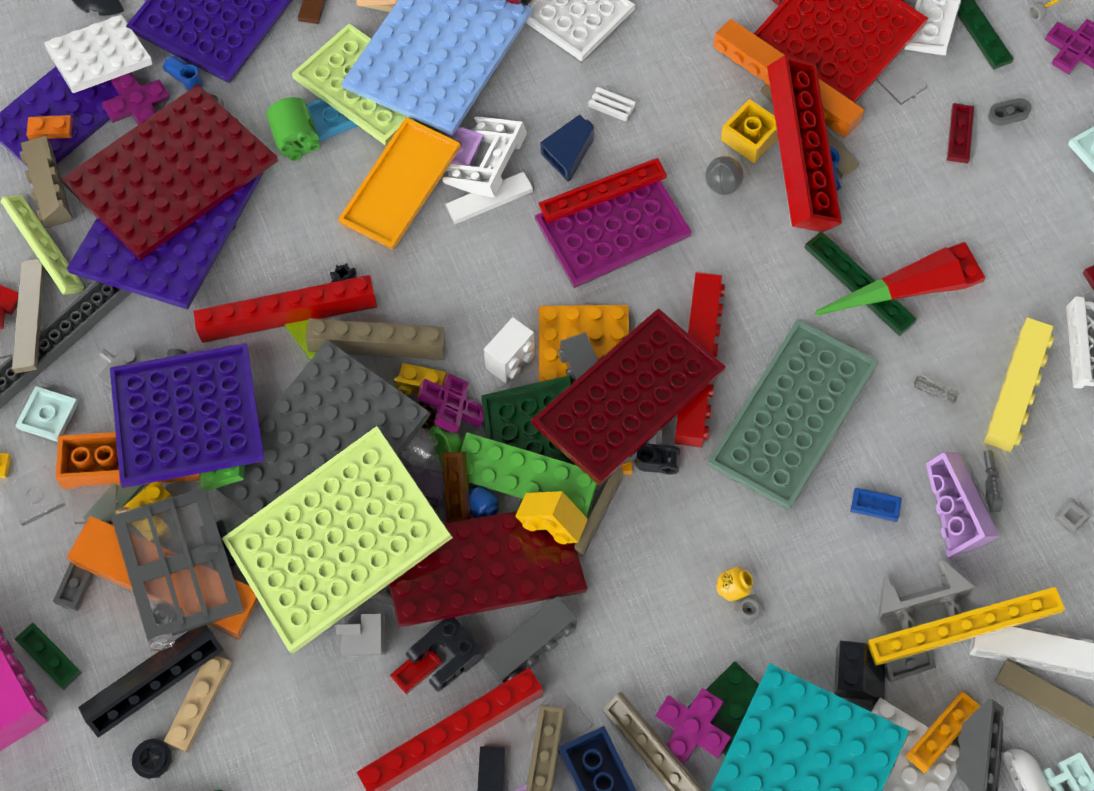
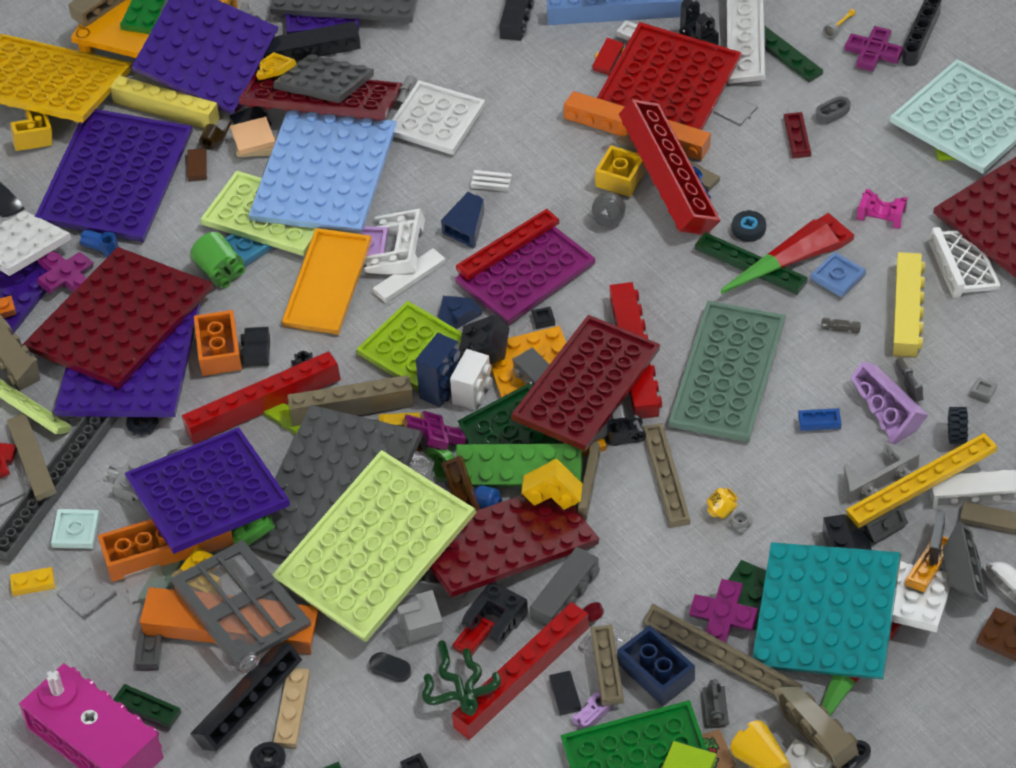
camera: 15 degrees left, 15 degrees down
(148, 308) = (133, 425): none -> black gear
(261, 229) = (217, 342): none -> orange brick
(301, 243) = (256, 346): none -> black brick
(316, 682) = (390, 667): none -> black tile
(376, 754) = (466, 696): none -> dark green plant
(464, 286) = (402, 340): none -> lime plate
(474, 330) = (435, 369): none -> dark blue brick
(525, 257) = (458, 310): none -> dark blue plate
(539, 306) = (486, 337): none -> black piece
(552, 680) = (594, 611): none -> dark red tile
(614, 289) = (543, 317): none -> black tile
(686, 526) = (666, 475): none -> dark tan tile
(865, 241) = (743, 231): none -> black bush
(952, 323) = (838, 274): none -> medium blue plate
(961, 703) = (937, 537): none -> tile
(1023, 250) = (874, 207): none -> dark pink piece
(1029, 561) = (957, 425): none -> black bush

